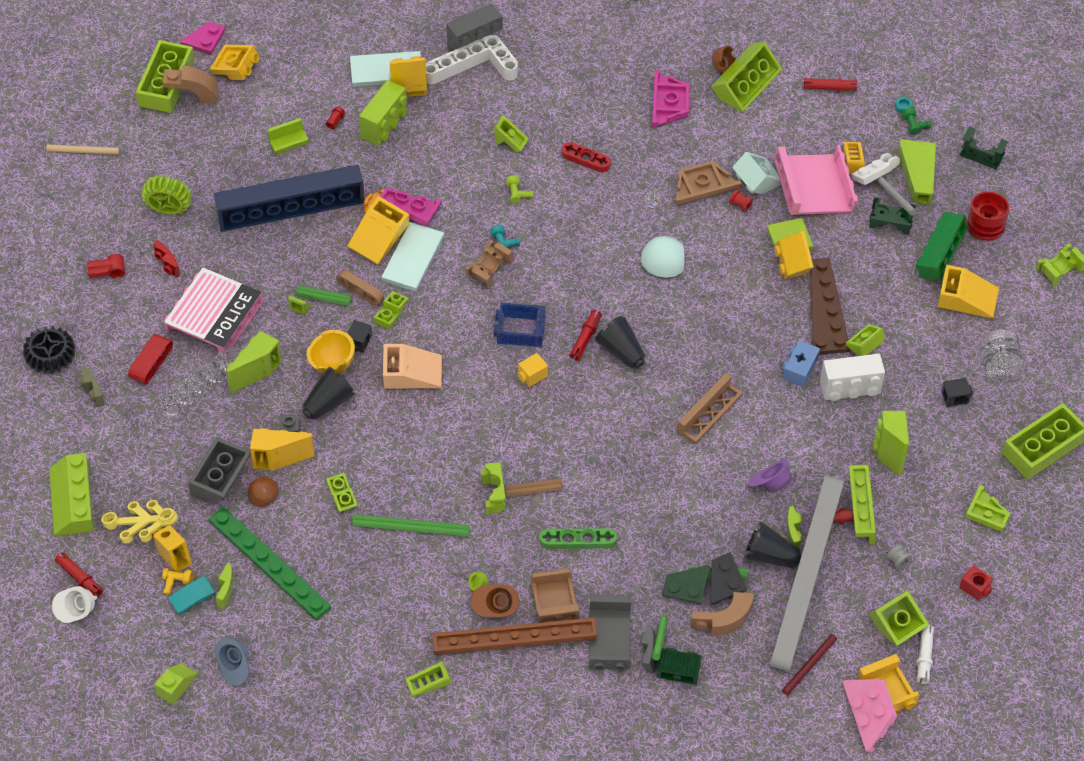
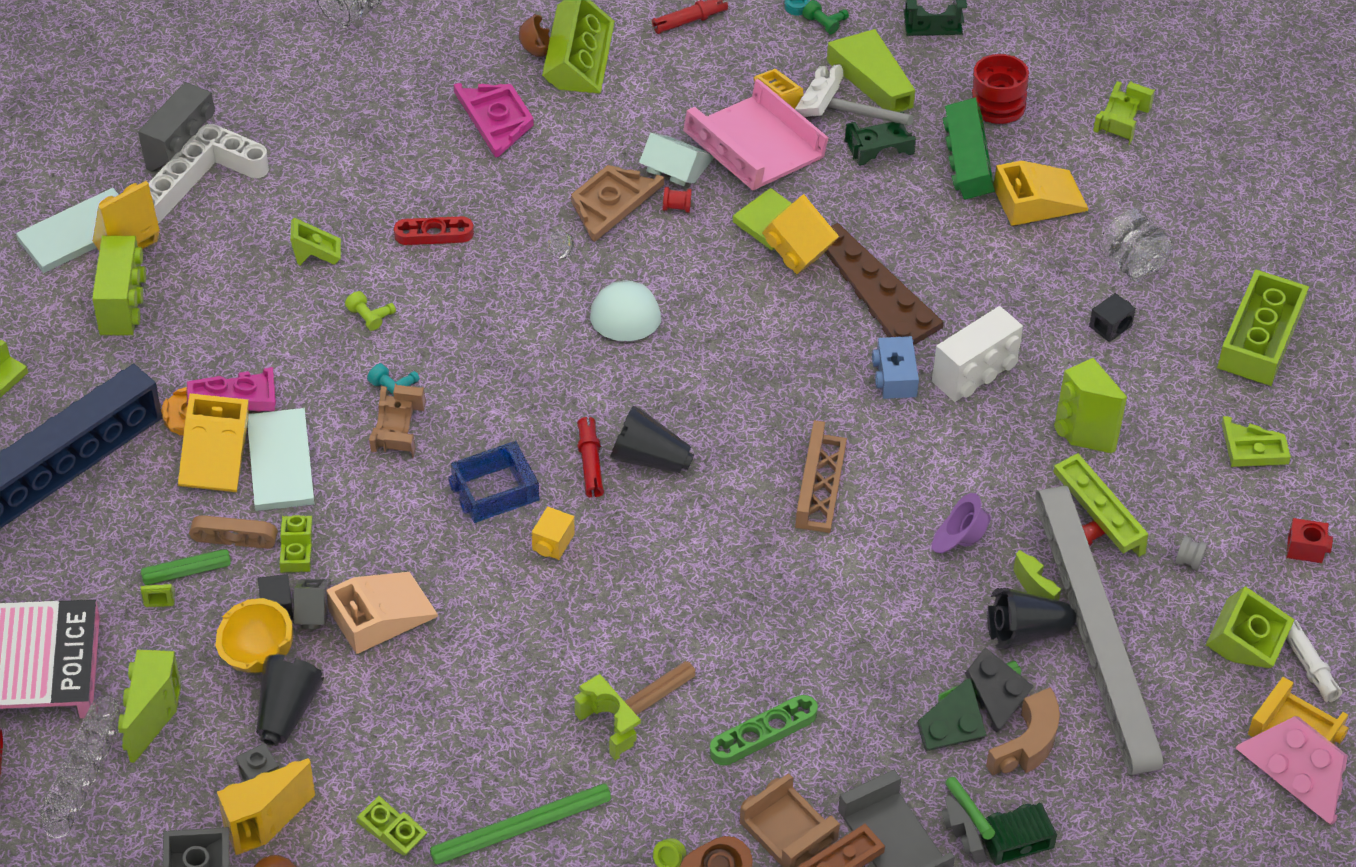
camera: 30 degrees left, 5 degrees down
(337, 114) = (47, 322): red pin -> none
(373, 347) = (311, 603): none -> dark grey slope
(809, 664) = (1178, 746): dark red bar -> none
(866, 340) = (955, 303): lime slope -> none

